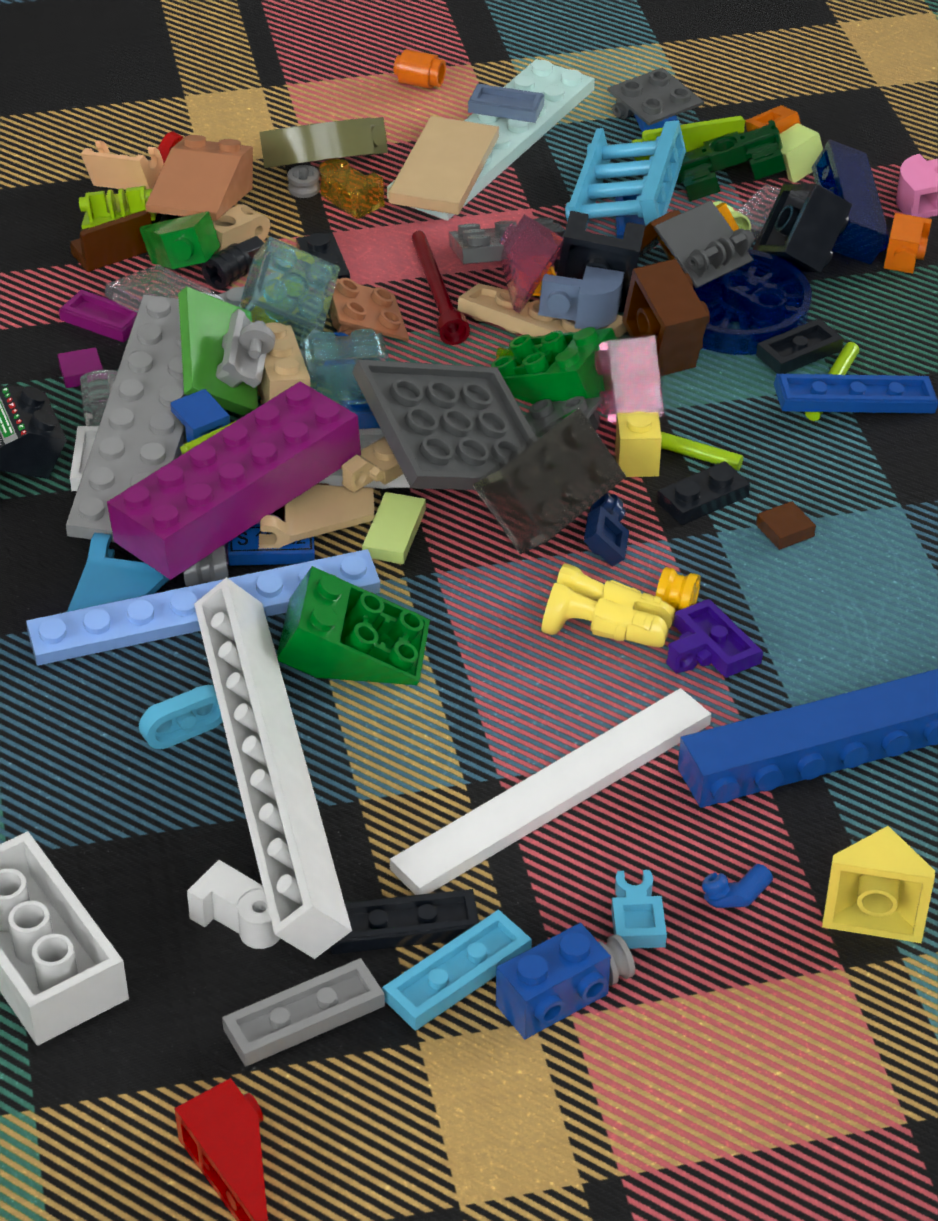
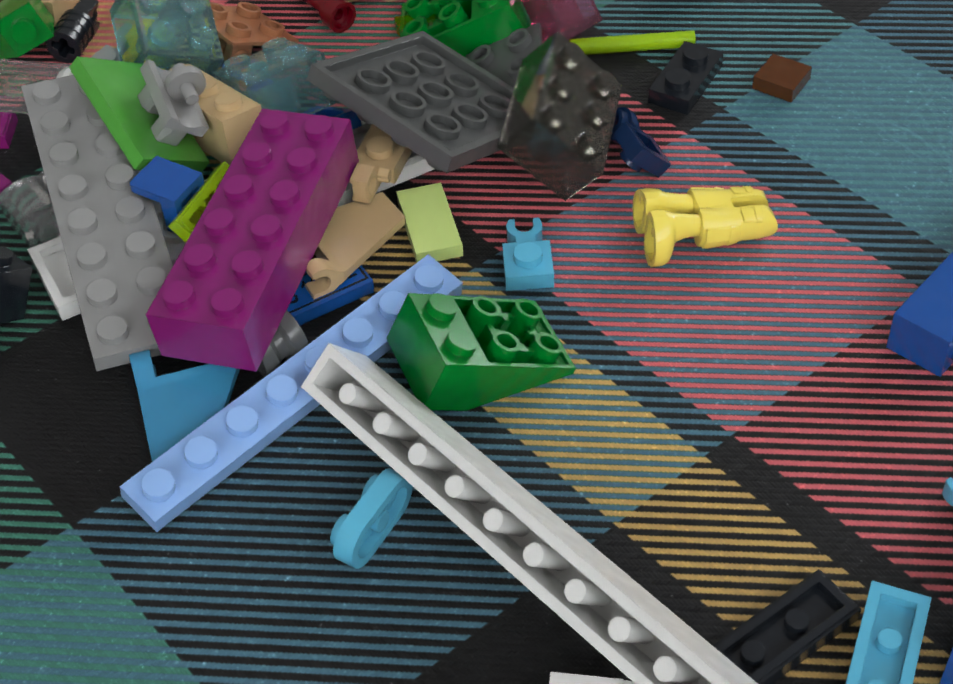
camera: 25 degrees left, 5 degrees up
(448, 587) = (527, 258): none -> medium azure plate
(548, 793) = (794, 439): white tile -> none
(638, 443) = (606, 46): light yellow brick -> none
(678, 589) = (752, 171): yellow wheel -> none
(710, 639) = (819, 209): dark purple hinge -> none

